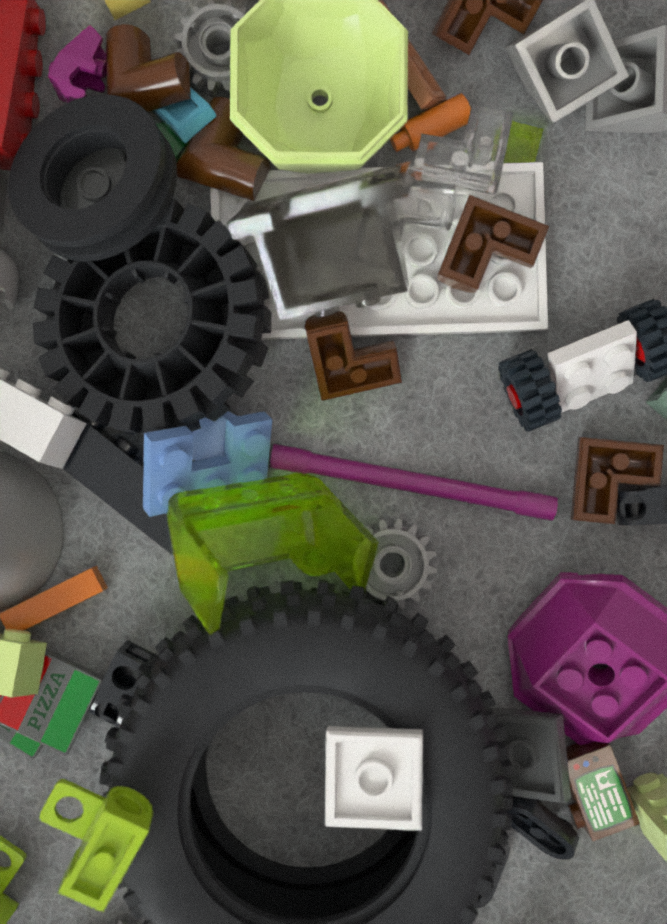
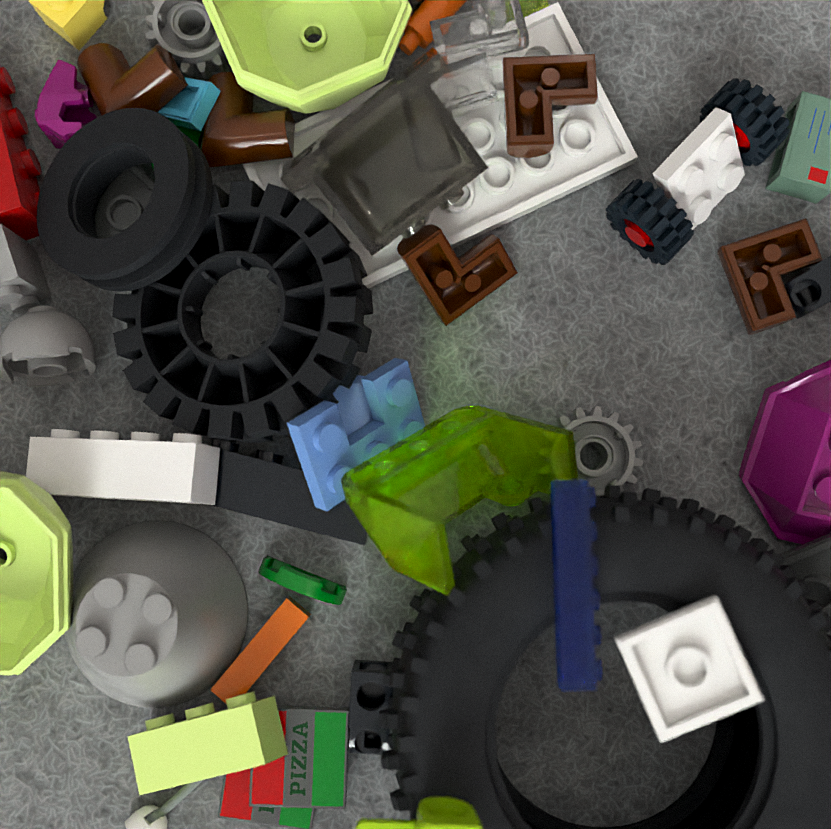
camera: 25 degrees left, 5 degrees down
(110, 559) = (302, 581): none -> green tile
(311, 673) = (573, 585): none -> clear blue piece
(519, 502) = (689, 340): magenta piece -> none

